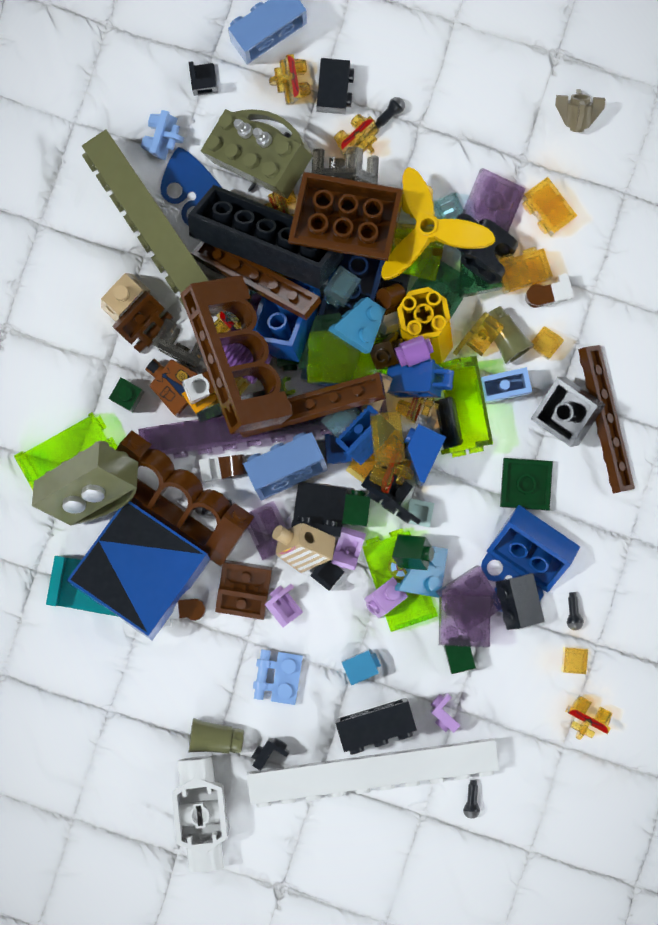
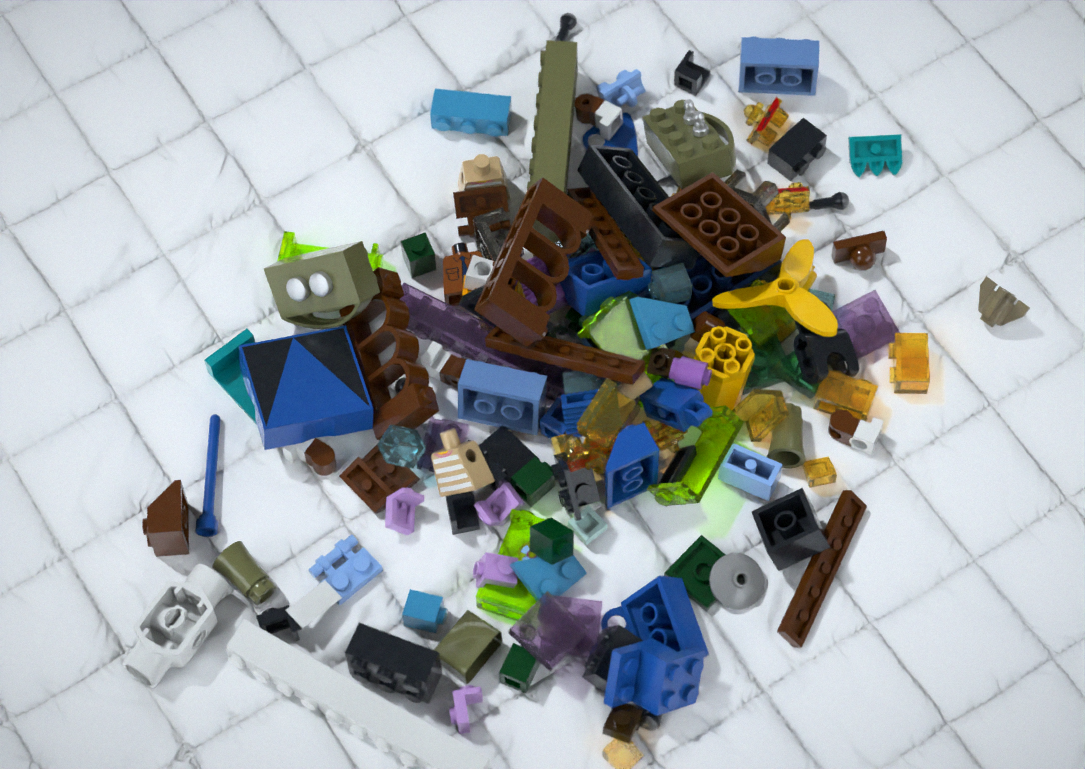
camera: 40 degrees right, 25 degrees down
(64, 243) = (471, 112): none -> dark azure brick
(70, 103) = (567, 23): none -> black piece
(131, 746) = (168, 522): none -> reddish brown slope
(152, 719) = (206, 523): none -> blue piece
(163, 167) = (599, 113): none -> leg
(245, 560) = (401, 446): none -> clear light blue brick
(282, 724) = (313, 604): none -> white sticker
(392, 43) = (875, 151): none -> teal plate
(412, 669) = (468, 646): none -> olive piece
(445, 139) = (860, 249): none -> reddish brown tile
(546, 477) = (725, 585): none -> light grey dish
(561, 642) = (623, 722): none -> dark brown bracket
(563, 598) = (654, 676): none -> blue bracket

